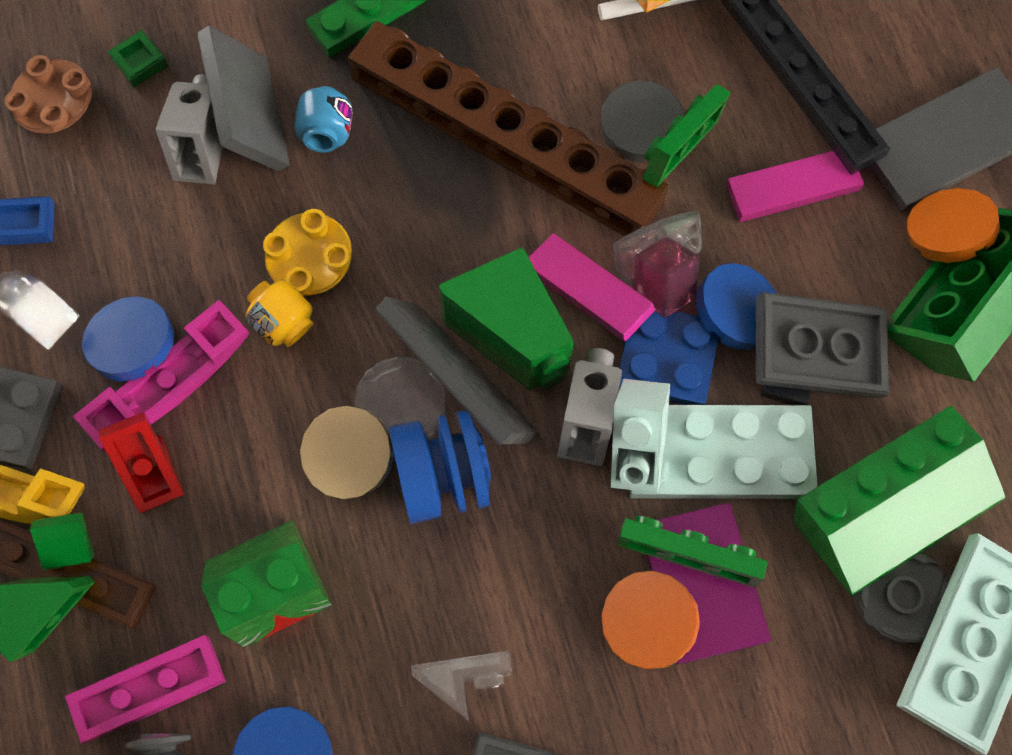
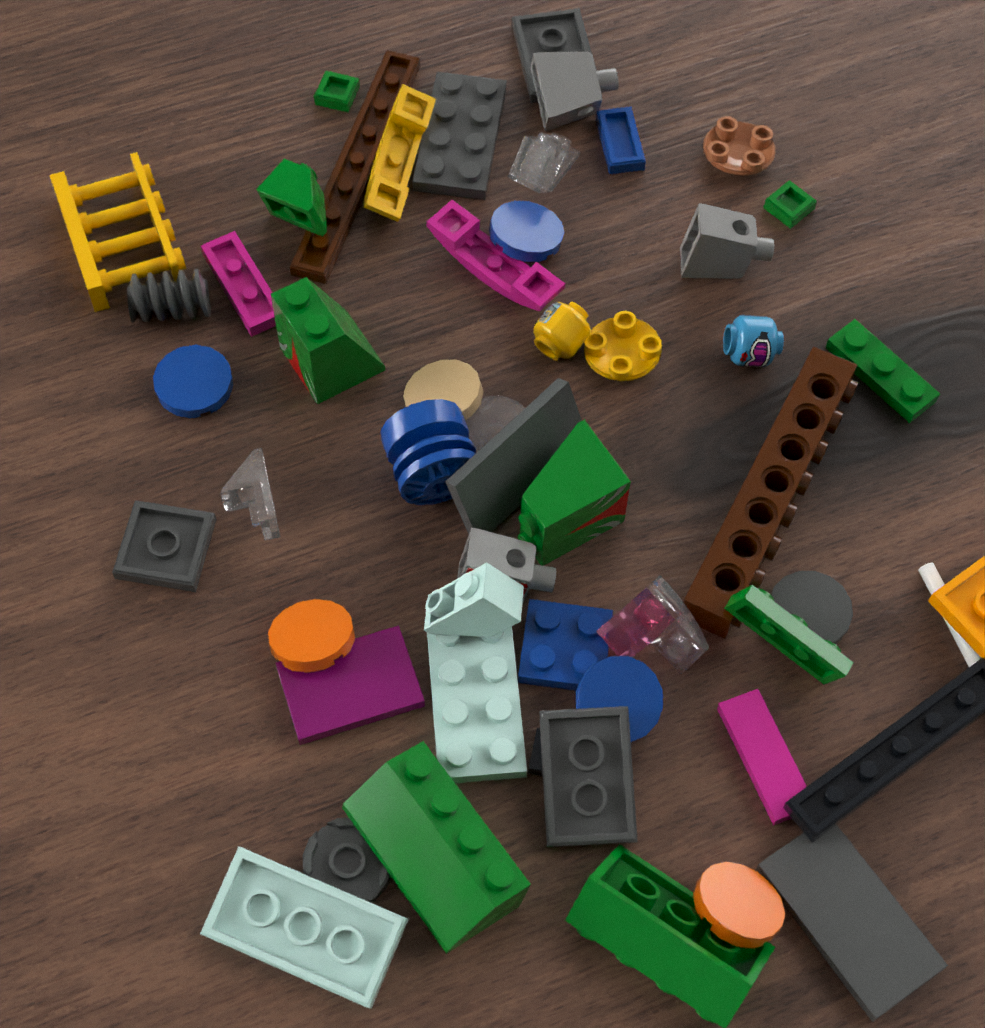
camera: 85 degrees right, 10 degrees down
(62, 541) = (350, 207): green tile -> none
(141, 462) = (420, 252): red slope -> none
(243, 99) = (754, 274): dark grey tile -> none
(590, 287) = (620, 568): dark pink tile -> none
(692, 551) = (371, 658): green plate -> none

